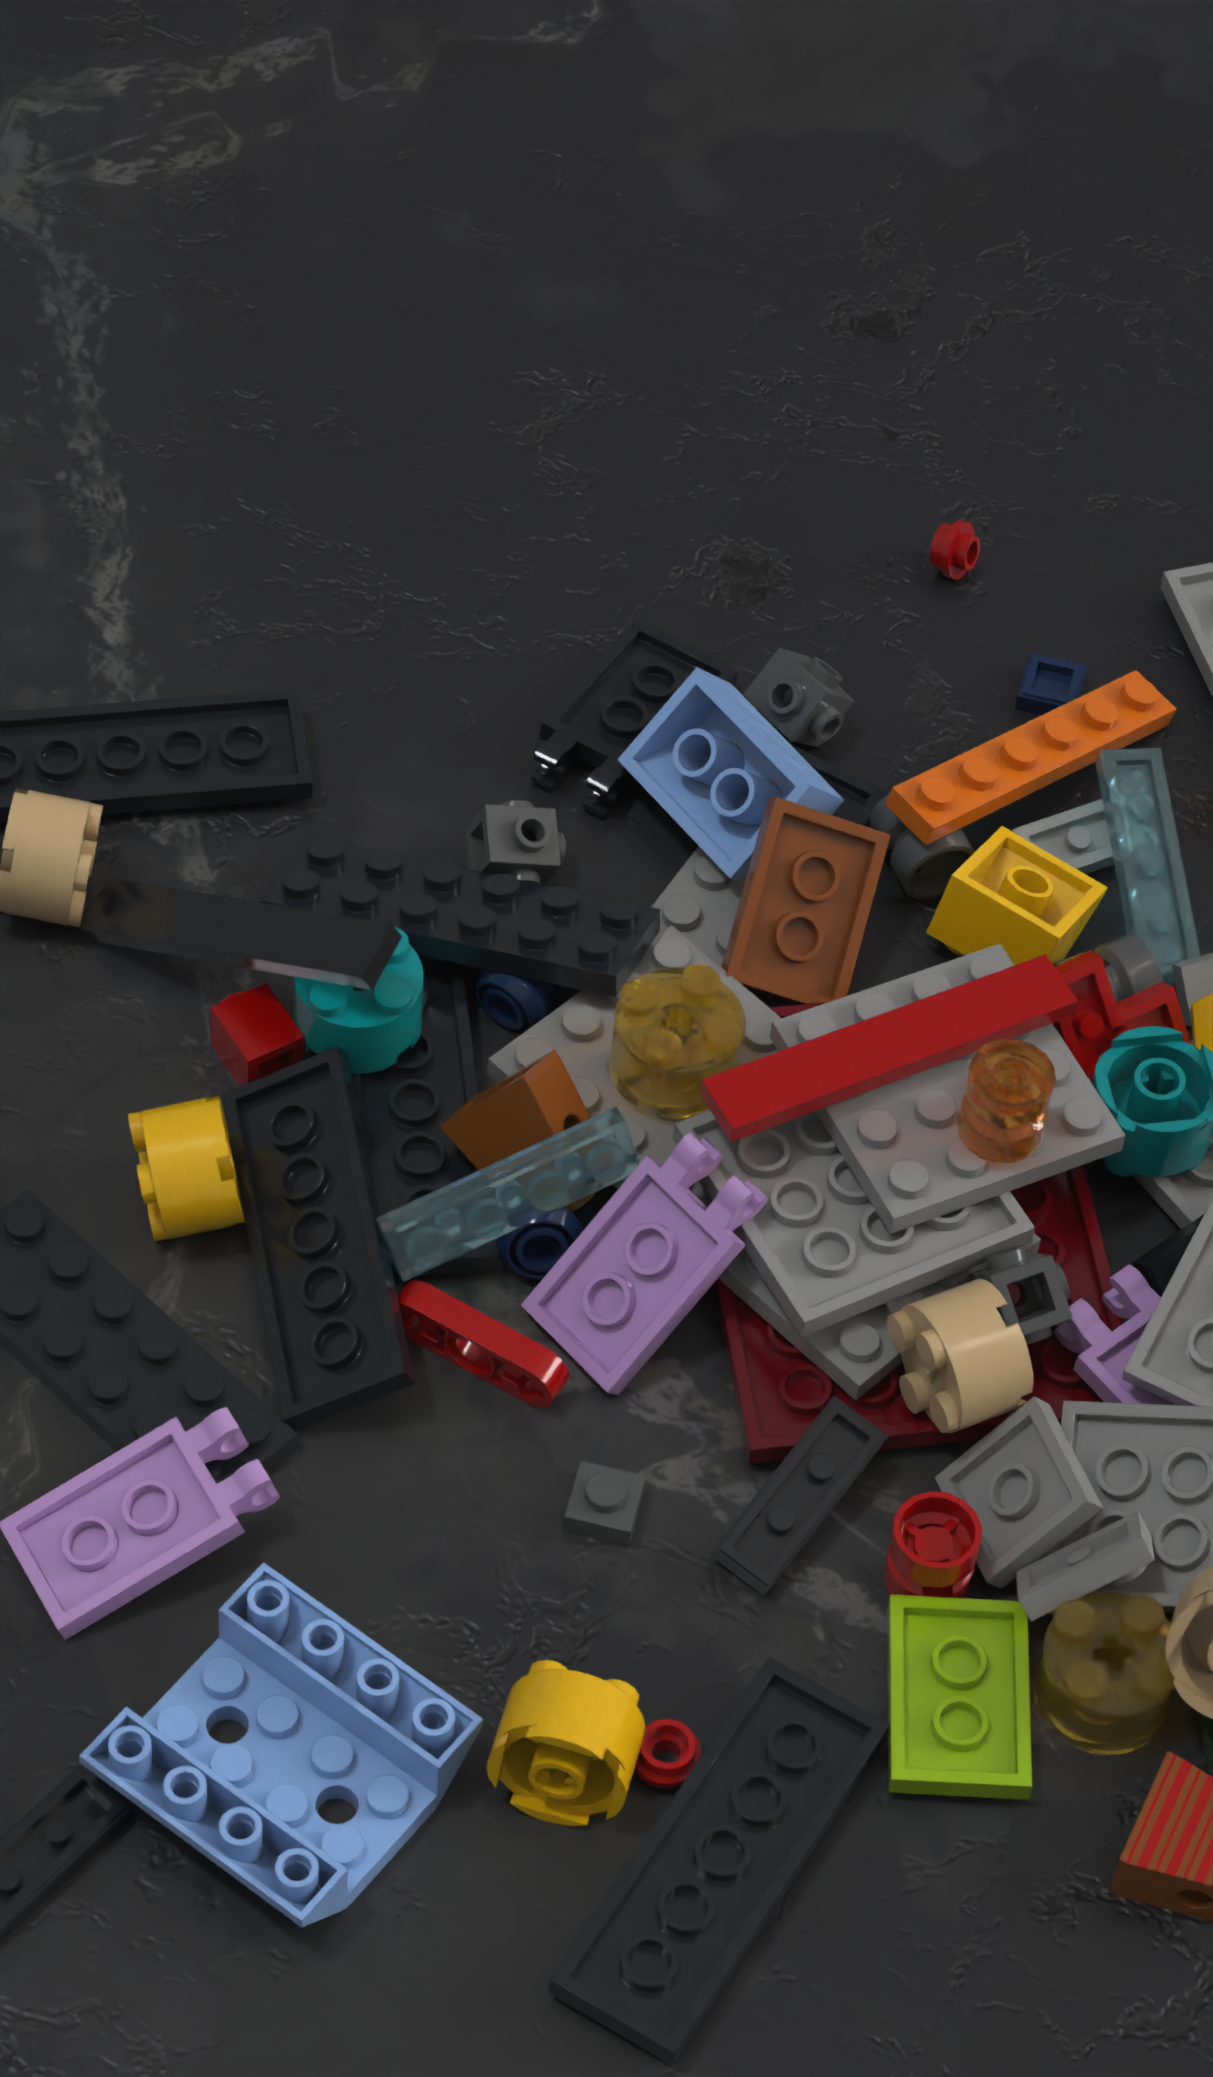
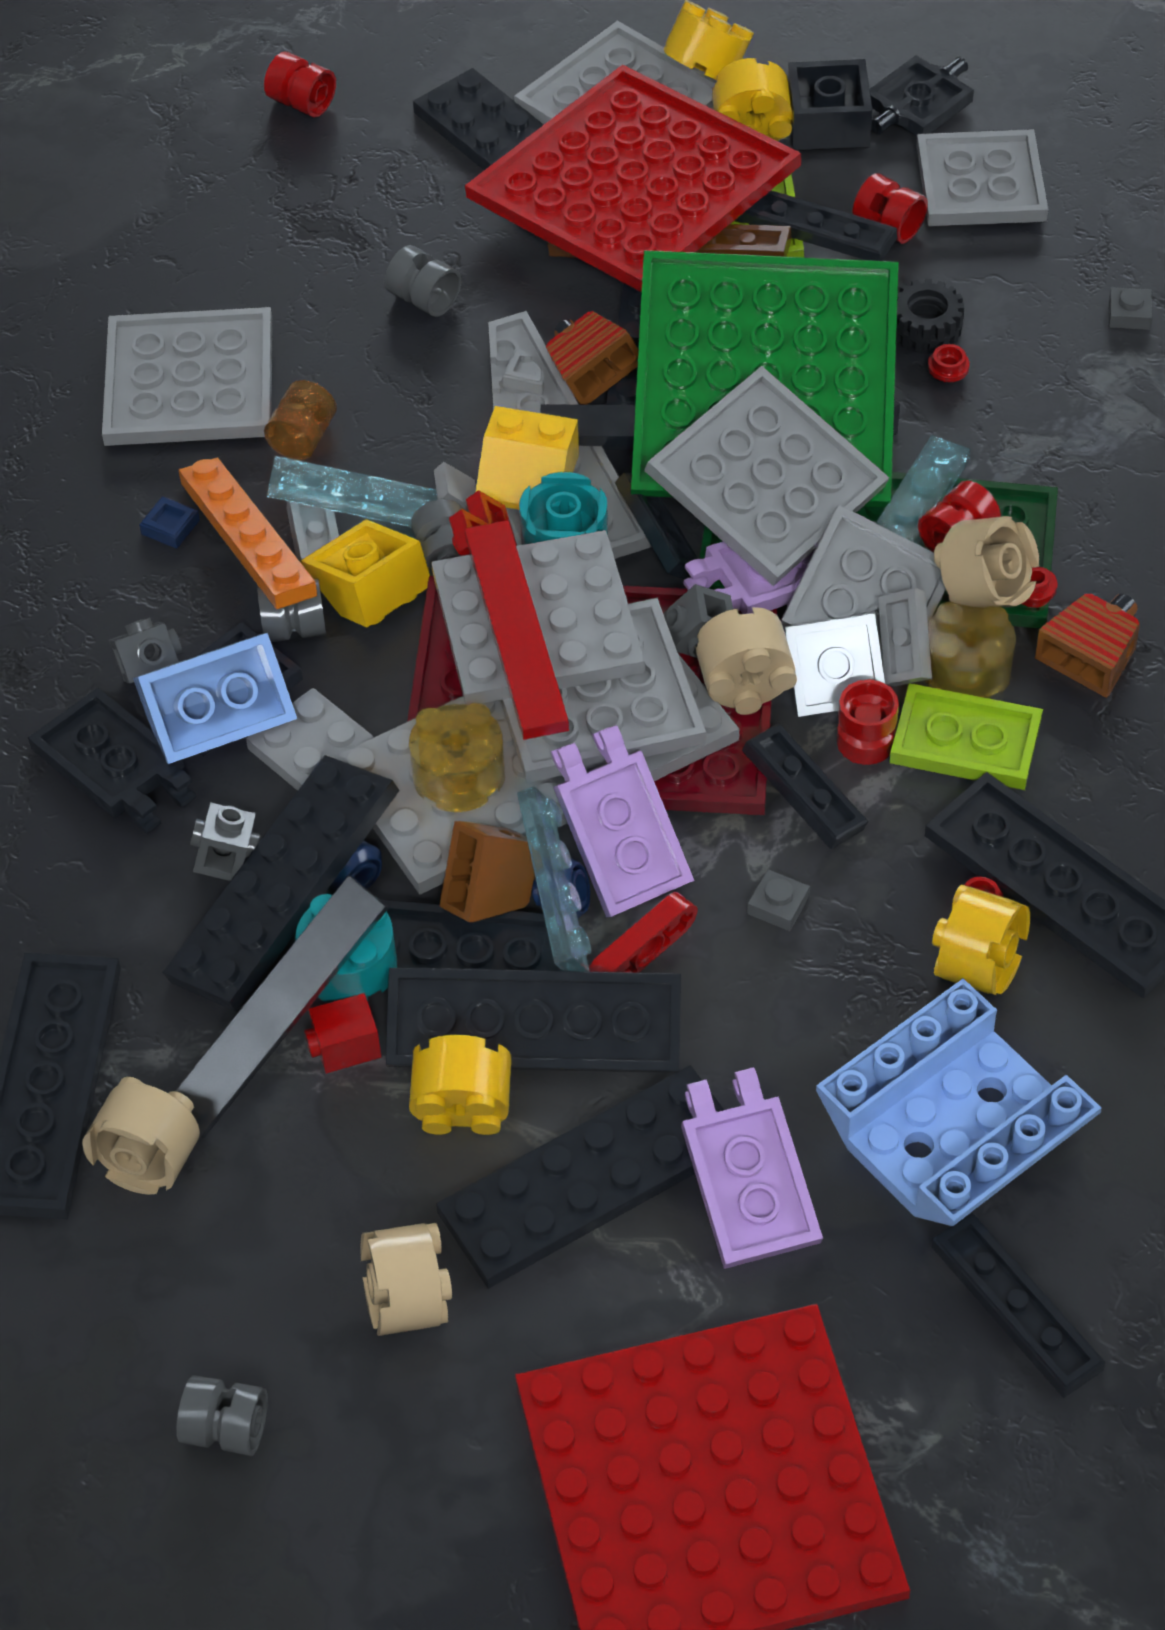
camera: 70 degrees left, 0 degrees up
(804, 904) = (342, 675): dark orange plate -> none
(955, 549) = (35, 543): red plate -> none
(1006, 1100) = (590, 566): clear orange wheel -> none

